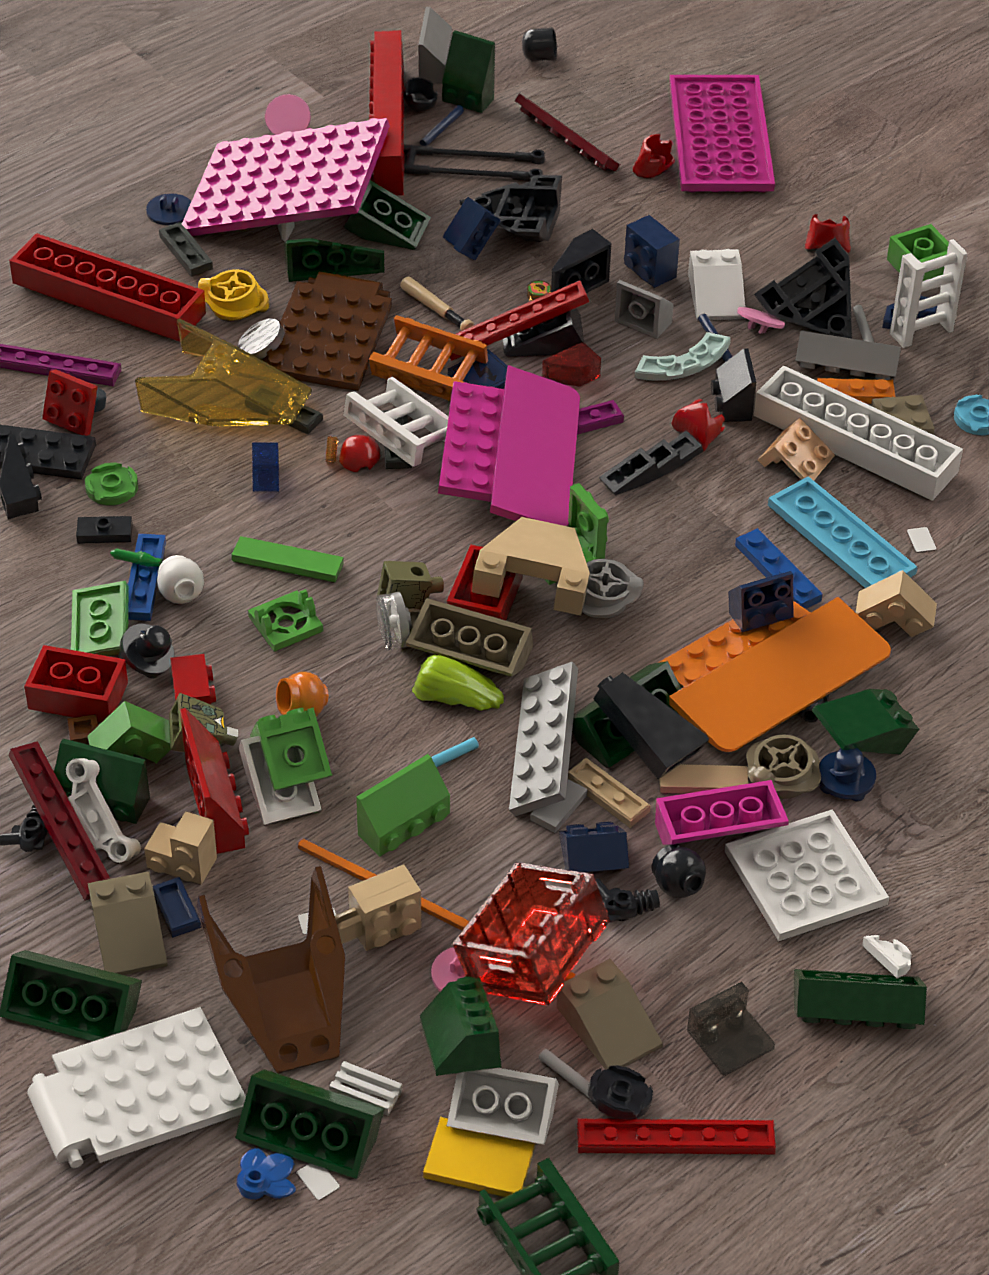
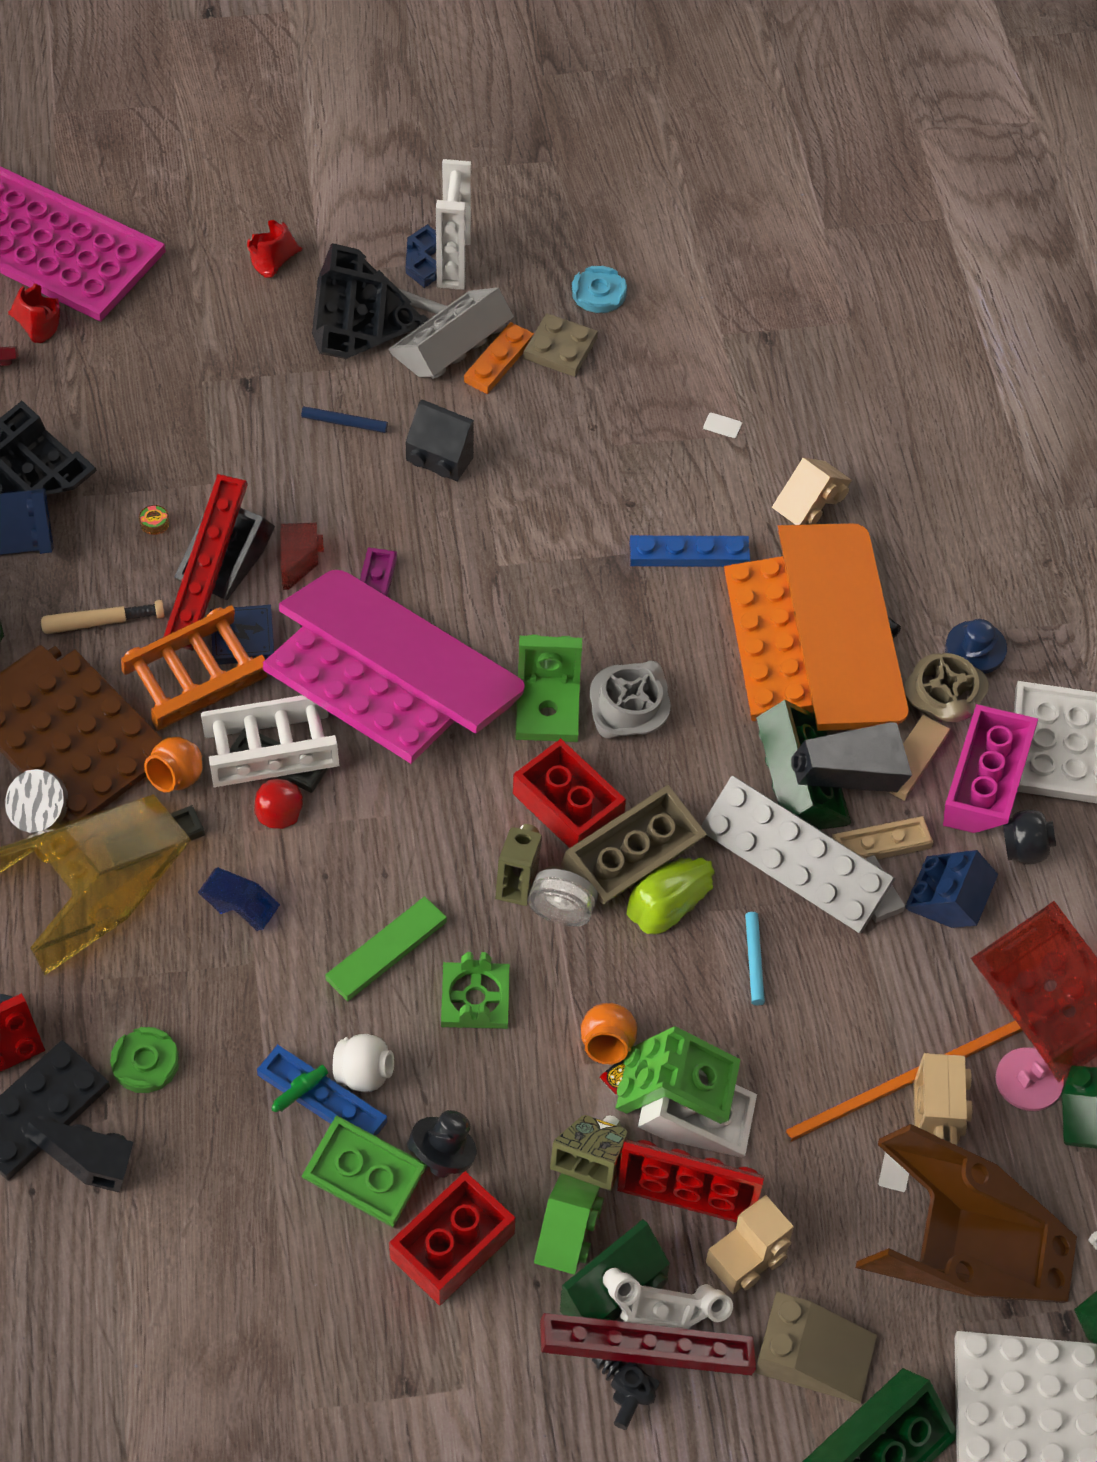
camera: 60 degrees left, 10 degrees up
(81, 727) = (514, 1264): reddish brown plate -> none
(104, 529) = (213, 1101): black plate -> none
(176, 907) = (818, 1288): dark blue tile -> none
(192, 677) = (519, 1128): red brick -> none
(331, 450) = (257, 825): clear orange tile -> none
(339, 382) = (174, 764): none -> orange piece
(402, 806) = (817, 1021): bright green slope -> none
(536, 551) = (576, 718): tan wedge -> none
(584, 260) = (164, 462): black slope -> none
(625, 905) = (1031, 898): black piece -> none
(642, 310) = (265, 451): light grey slope -> none
(648, 466) = (482, 568): black slope -> none
(651, 251) = (191, 394): dark blue brick -> none
(672, 367) = (362, 461): light aqua tile -> none
(698, 422) = (463, 499): red hair -> none
(716, 283) = (272, 373): white slope -> none
(760, 317) = (350, 368): bright pink piece -> none
(762, 601) = (752, 583): dark blue slope -> none
(799, 450) = (546, 444): light nougat bracket -> none
(839, 533) = (684, 479): medium azure plate -> none
(860, 432) = (570, 387): white brick -> none
(868, 722) = (945, 593): dark green slope -> none
(923, 242) = (367, 199): bright green brick -> none

